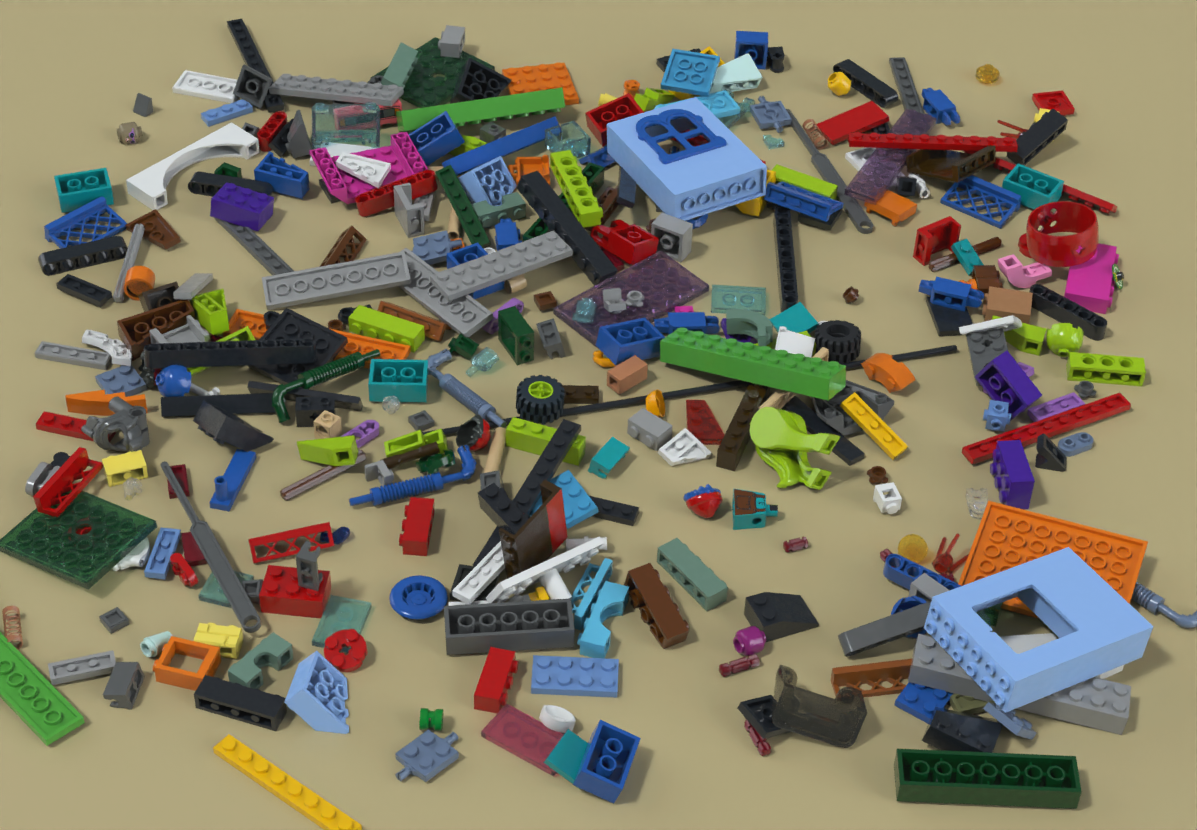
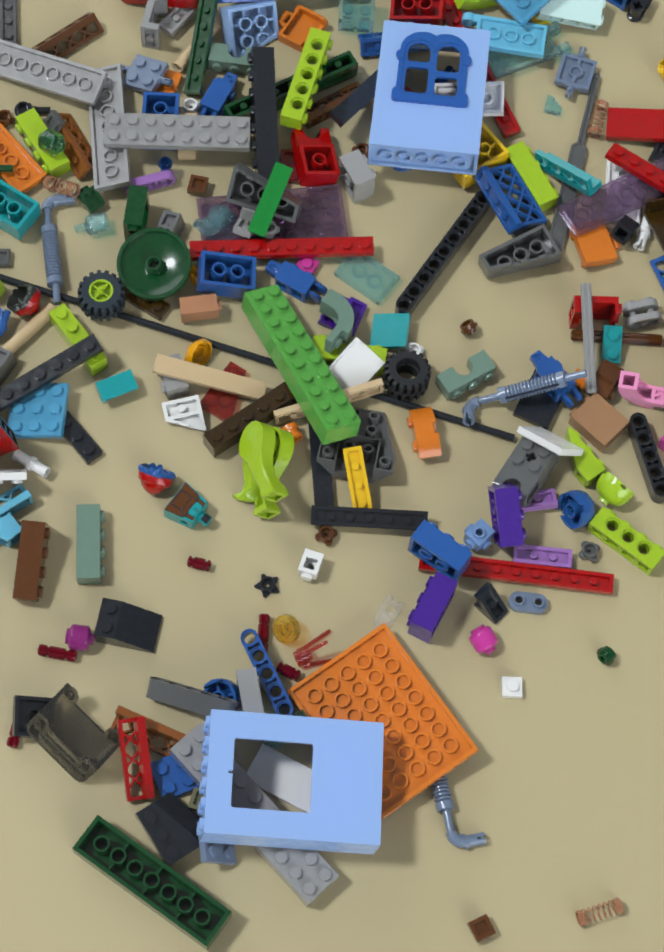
camera: 30 degrees right, 25 degrees up
(386, 306) = (54, 121): none -> dark grey tile
(400, 315) = (51, 142): none -> clear green head
(446, 339) = (68, 187): none -> nougat piece
(507, 294) = (165, 163): none -> clear blue pin
(565, 355) = (154, 264): none -> dark green dish
(600, 274) = (247, 188): none -> dark grey wedge
(626, 268) = (270, 199): none -> green tile
(663, 303) = (288, 247): none -> red plate
(683, 412) = (209, 377): none -> tan tile
(832, 166) = (568, 173): none -> teal fence
(846, 229) = (521, 253): none -> dark grey wedge
(861, 530) = (267, 580): none -> black plate
(883, 322) = (453, 384): none -> sand green arch
(889, 694) = (143, 758): none -> red fence
(902, 444) = (367, 517): none -> black tile
(936, 307) = (520, 390): none -> sand blue piece
(954, 251) = (588, 337): none -> light grey axle
(972, 229) = (641, 313): none -> light grey brick
(981, 429) = (440, 550): none -> blue brick
(1050, 364) = (577, 508): none -> blue cylinder
(1069, 480) = (483, 639): none -> dark pink head
(1120, 503) = (511, 687): none -> white plate
(1168, 441) = (606, 655): none -> dark green plate

